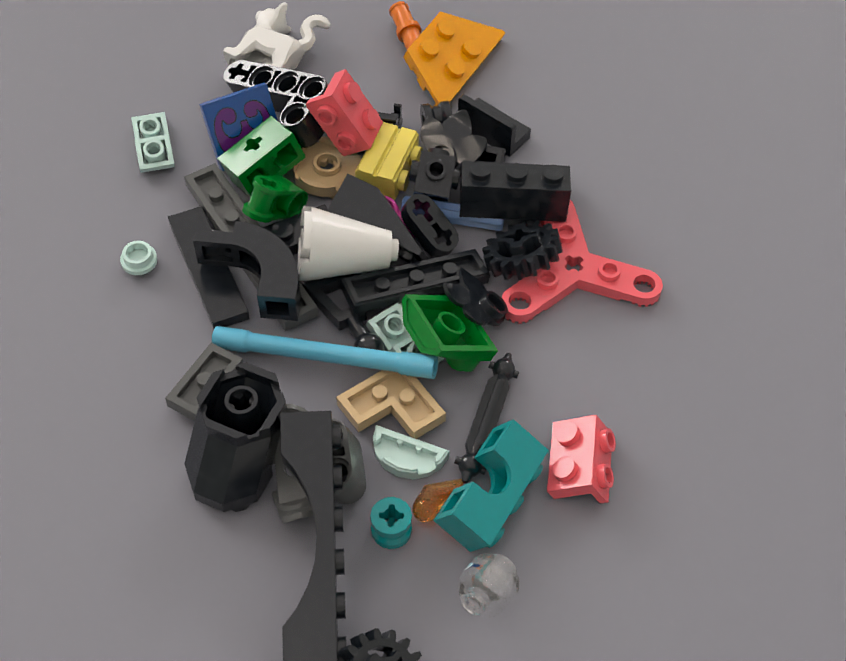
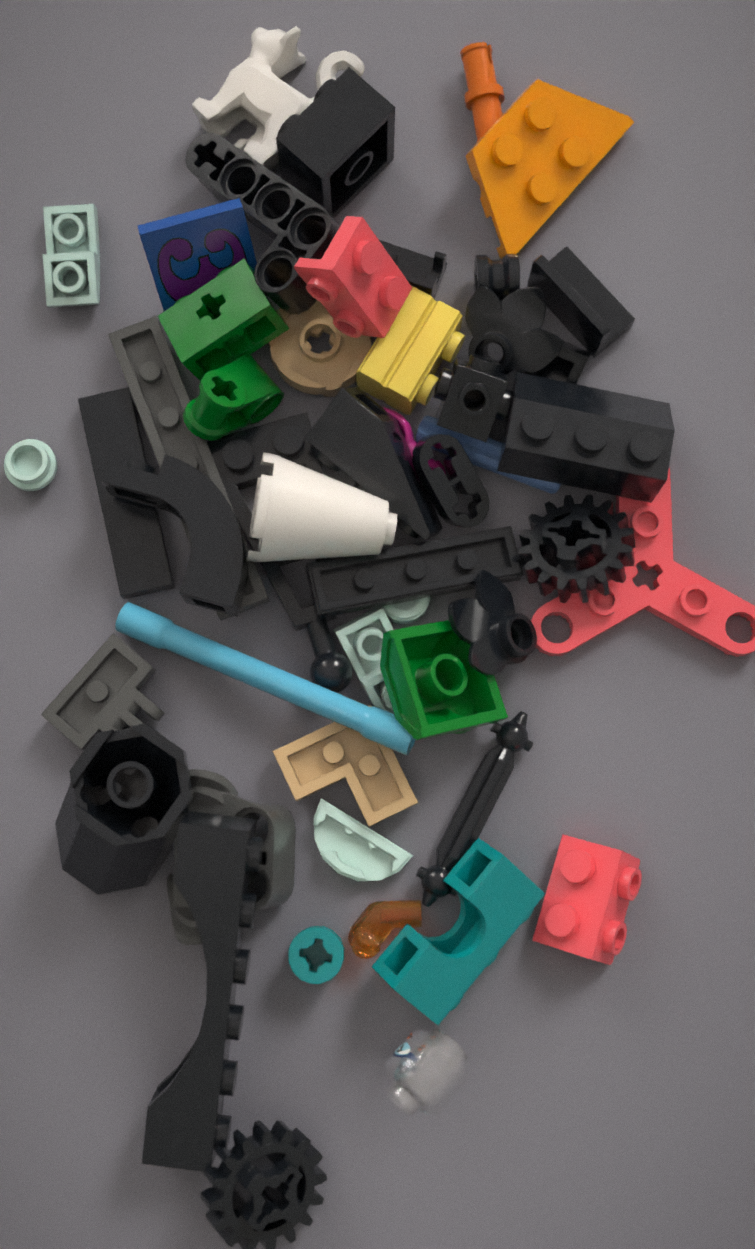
camera: 10 degrees right, 25 degrees up
(322, 46) = (337, 142): none -> black brick

